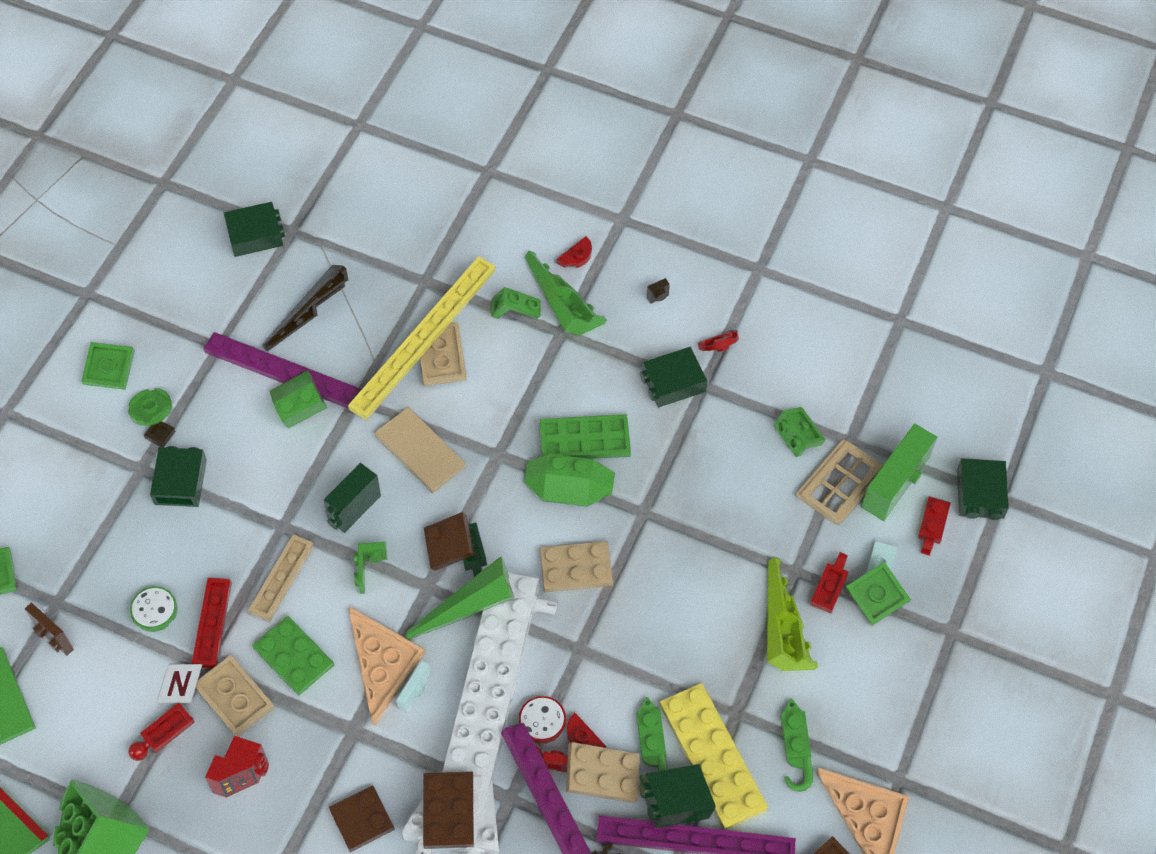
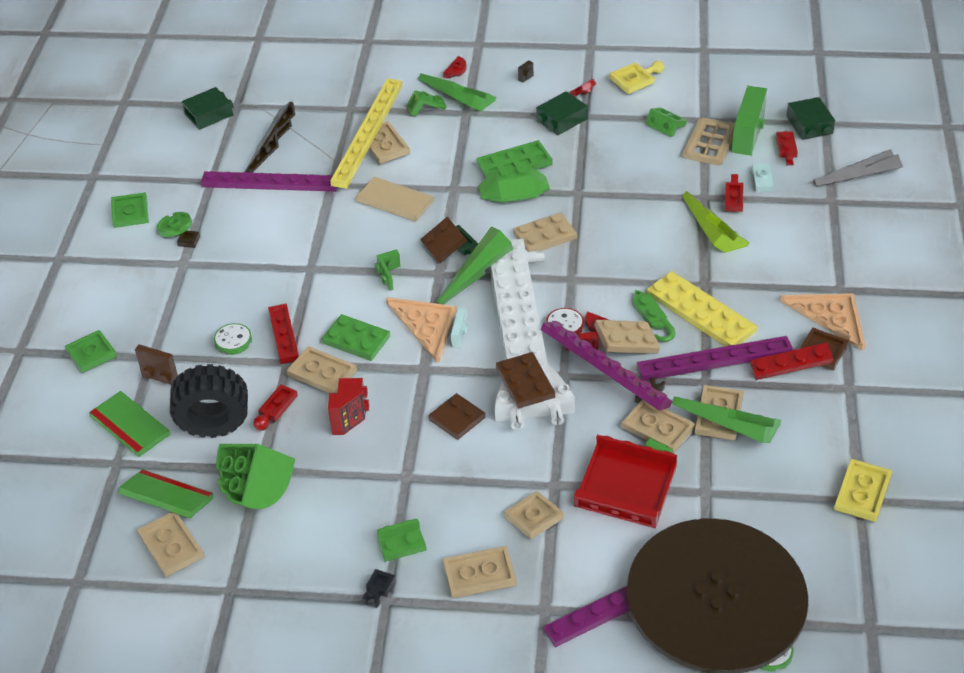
camera: 15 degrees left, 15 degrees down
(79, 715) = (208, 384): none -> black tyre
(178, 476) = (216, 257): dark green brick -> none
(179, 683) = (275, 374): white sticker -> none
(281, 578) = (325, 294): tan plate -> none
(297, 399) = (290, 190): bright green slope -> none
(352, 498) = (359, 231): dark green brick -> none
(677, 796) = (689, 332): dark green brick -> none
(795, 334) = (635, 77): none -> light yellow plate
(797, 744) = (758, 288): bright green plate -> none
(878, 593) = (770, 189): bright green plate -> none
(1022, 594) = (878, 163): none -> wedge

